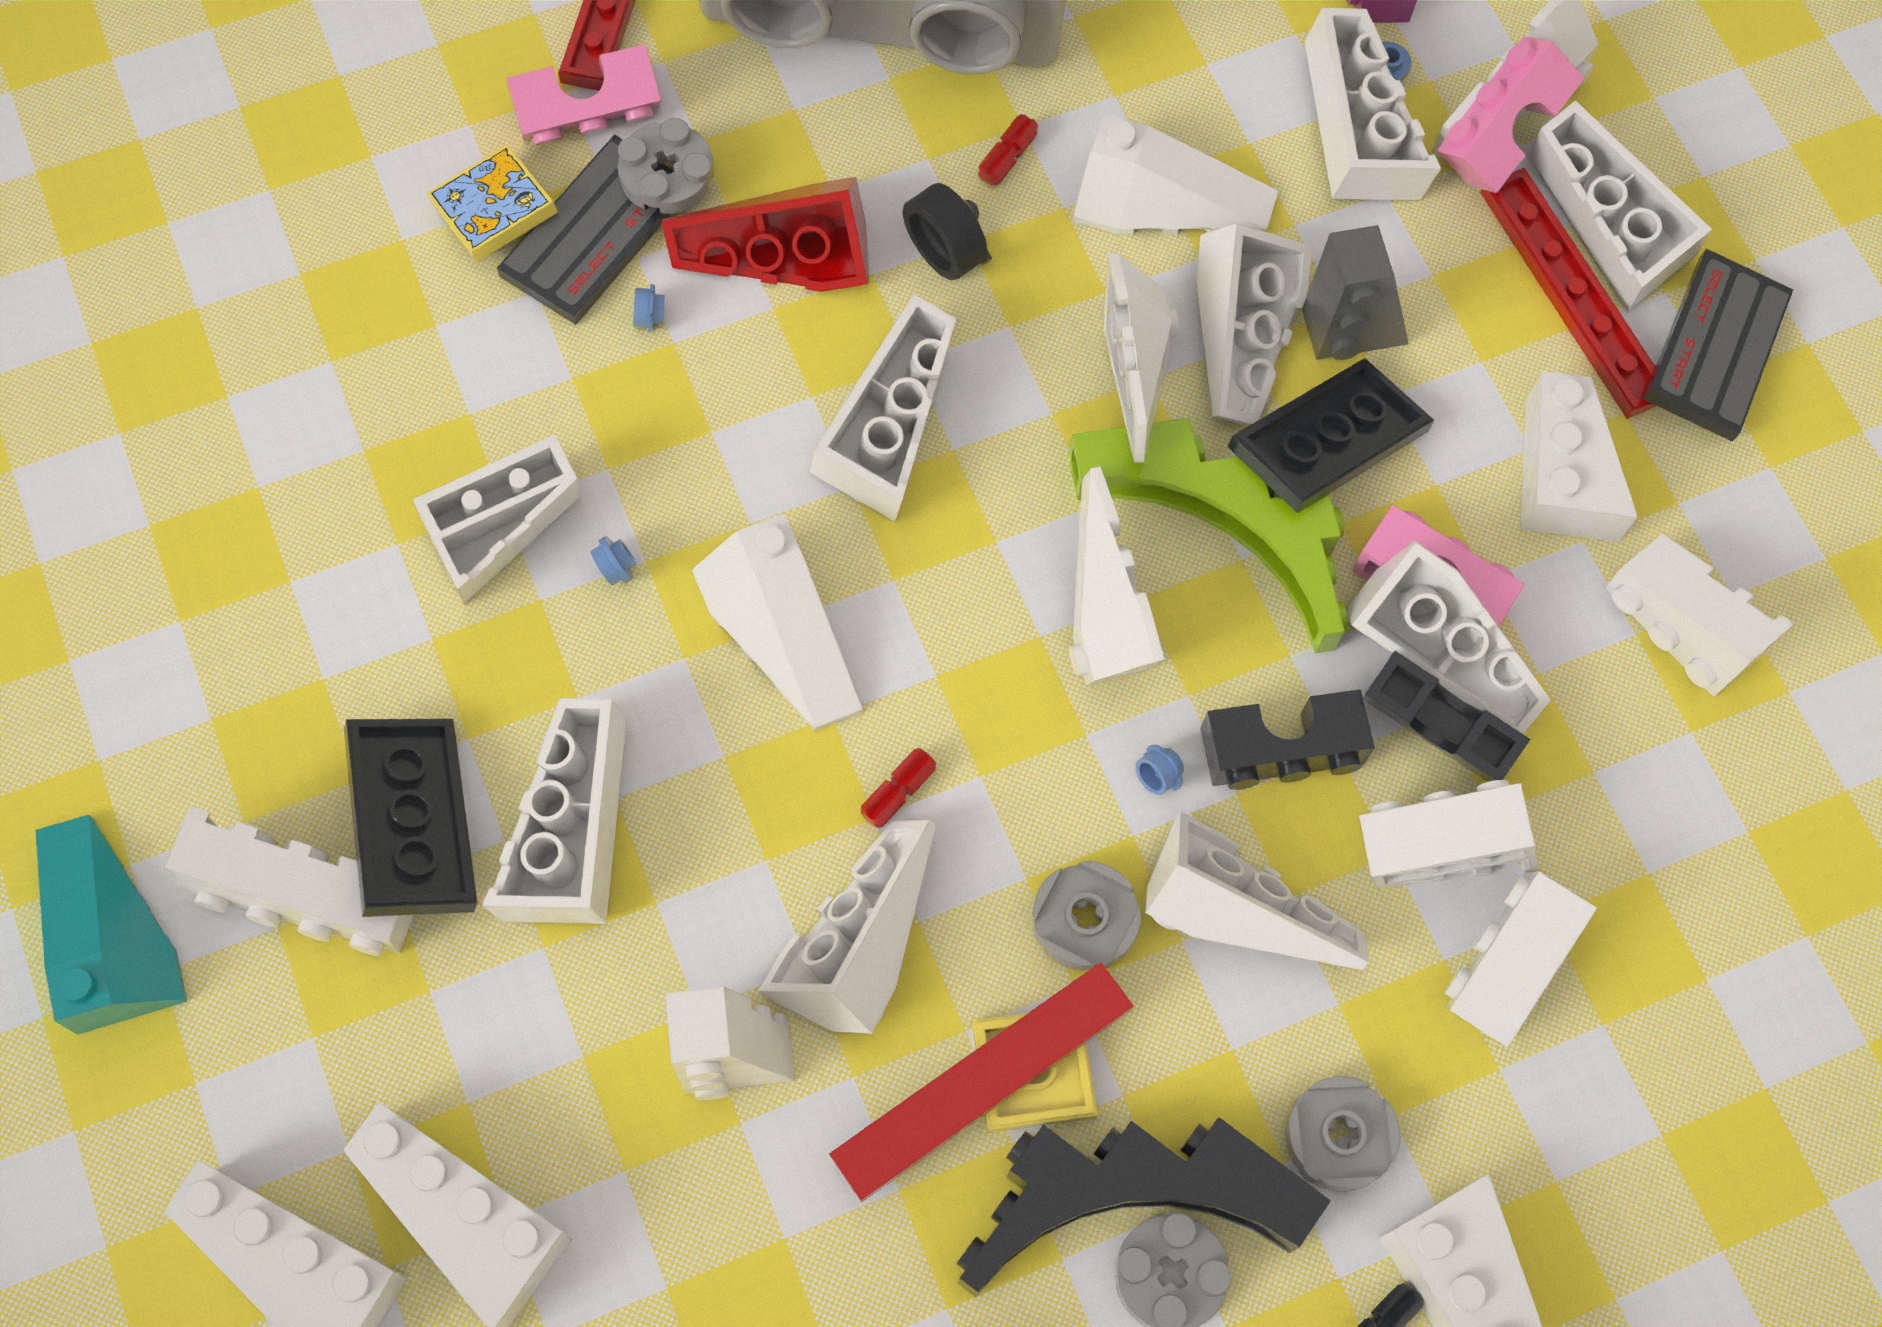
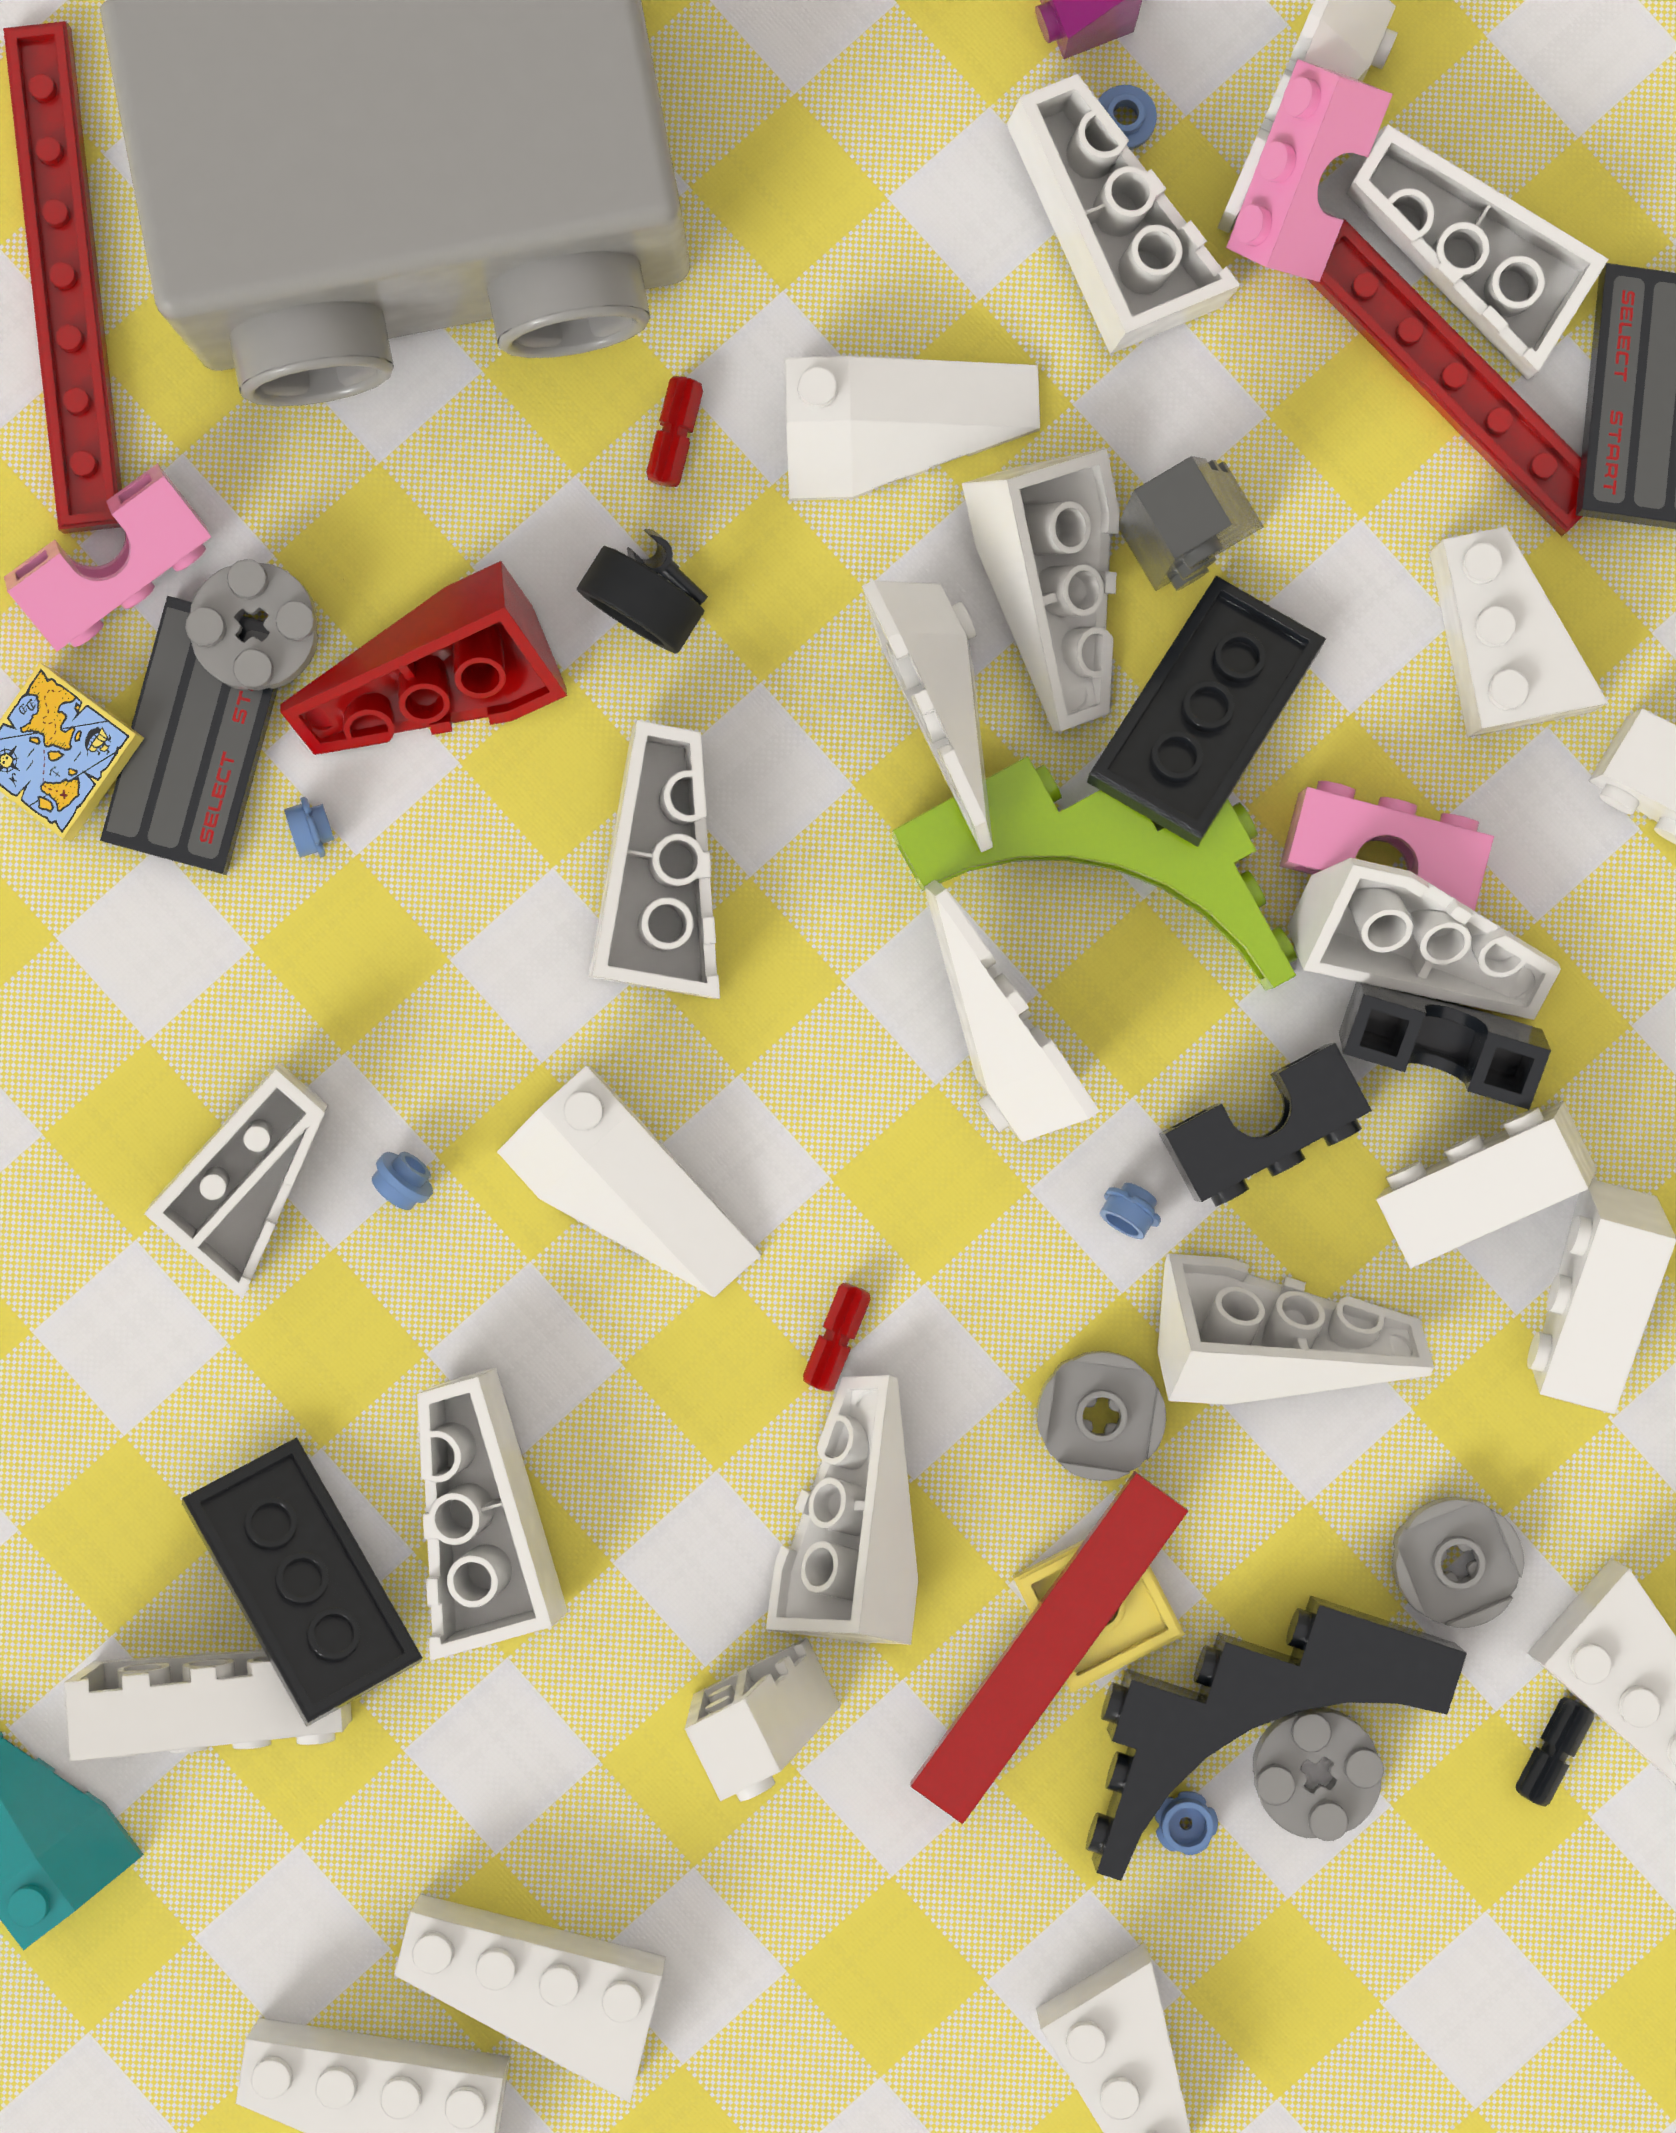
camera: 15 degrees left, 20 degrees up
(1063, 1276) = (1198, 1835): none -> medium blue plate

